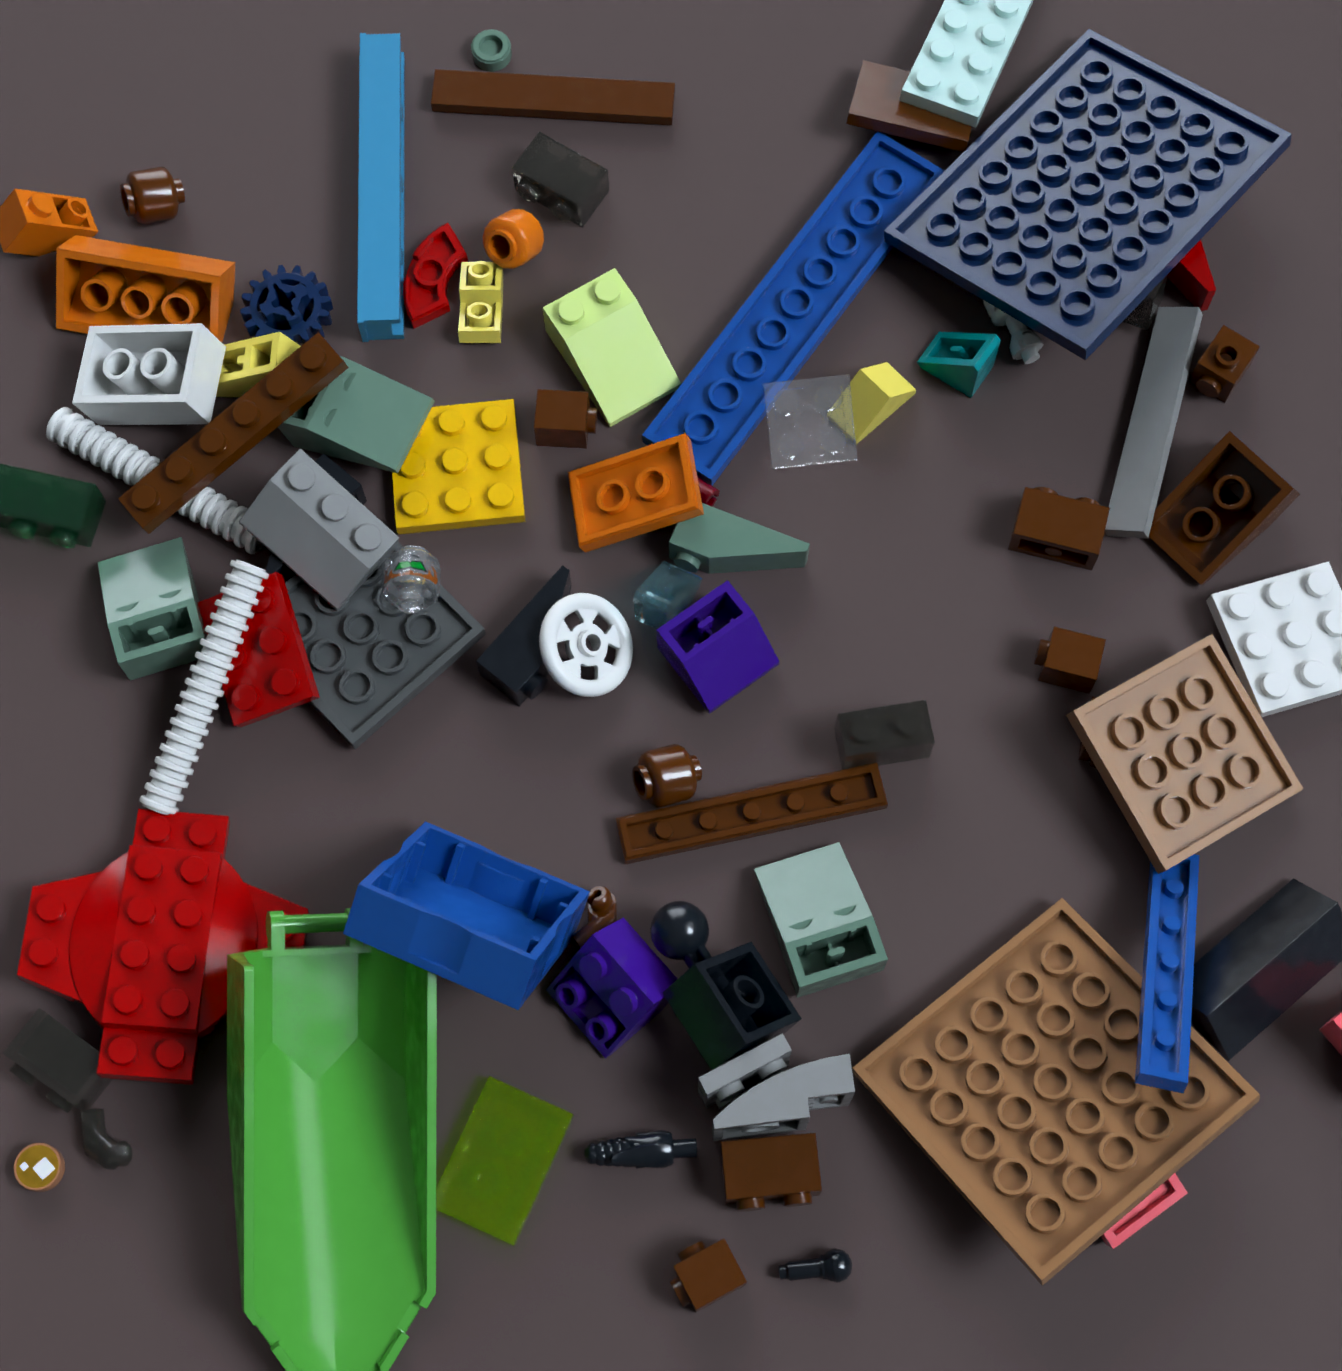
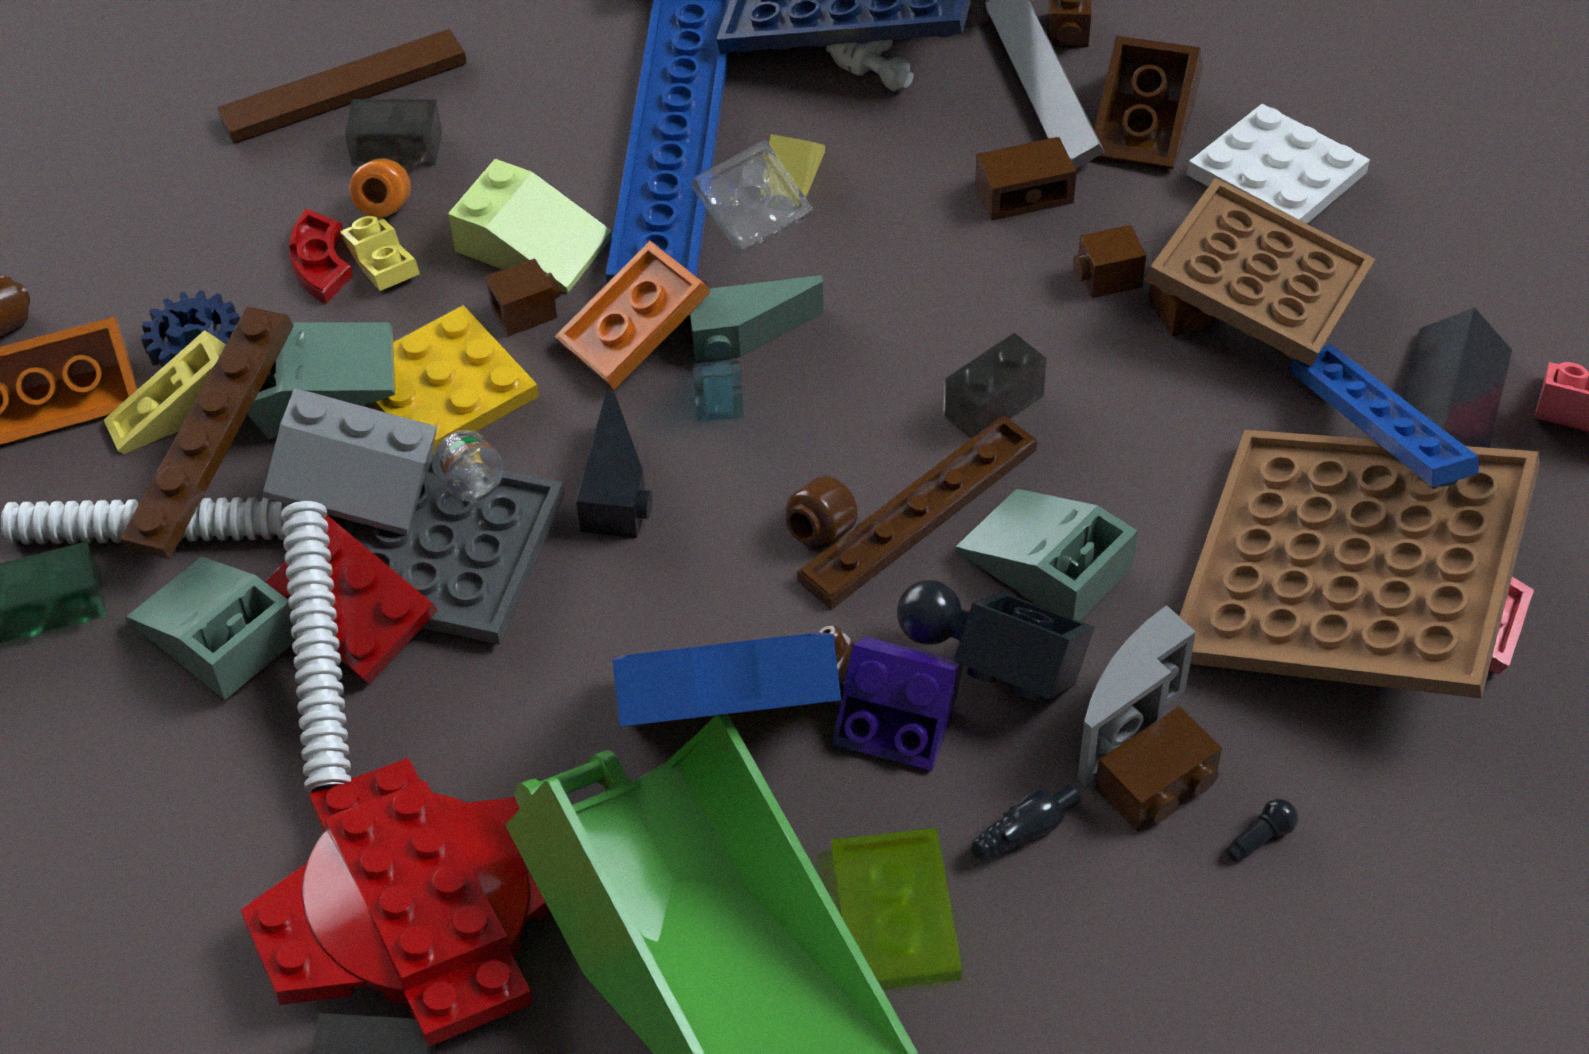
camera: 30 degrees left, 20 degrees down
(149, 374) = (87, 428): white brick -> none
(381, 187) = (224, 206): dark azure tile -> none
(491, 50) = (259, 76): sand green tile -> none
(568, 673) = (670, 446): white plate -> none
(706, 1274) = (1169, 886): reddish brown brick -> none
(717, 646) = (792, 391): dark purple slope -> none
(757, 1065) = (1071, 692): light grey plate -> none
(961, 359) = (849, 103): teal slope -> none

